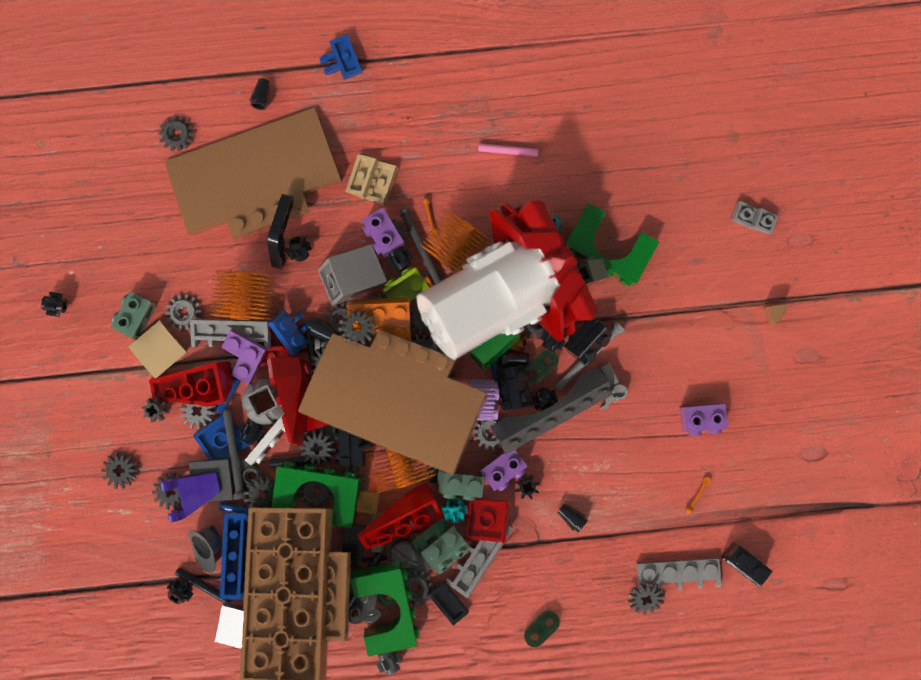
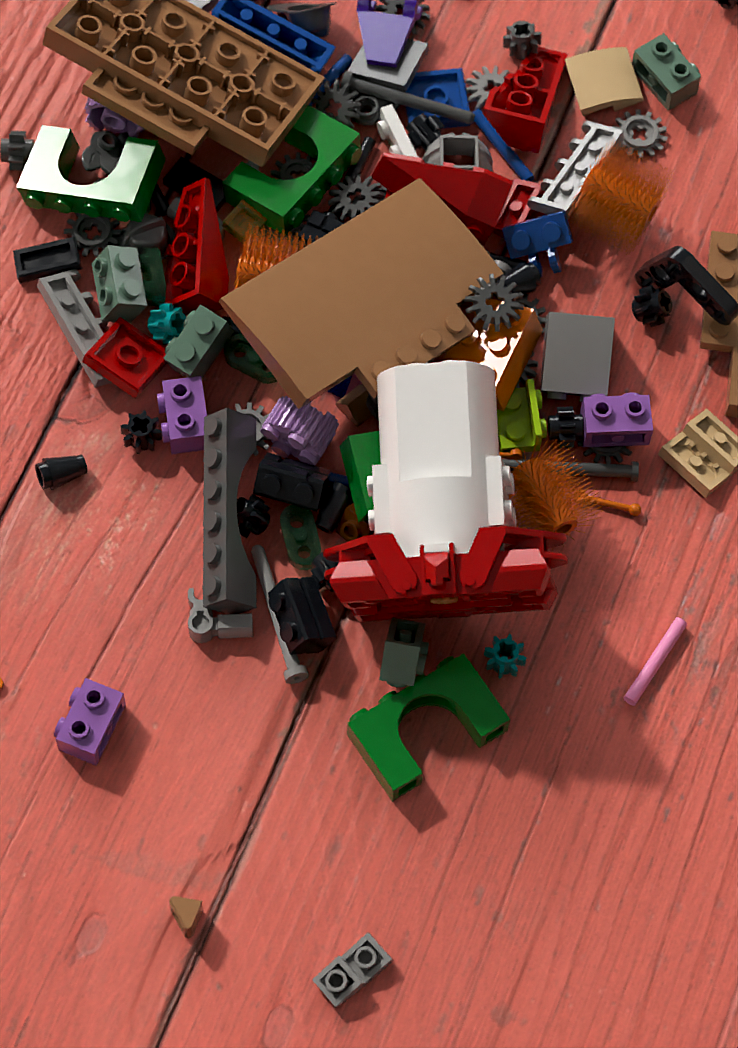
camera: 115 degrees right, 20 degrees down
(249, 354) = (536, 175): medium lavender plate -> none

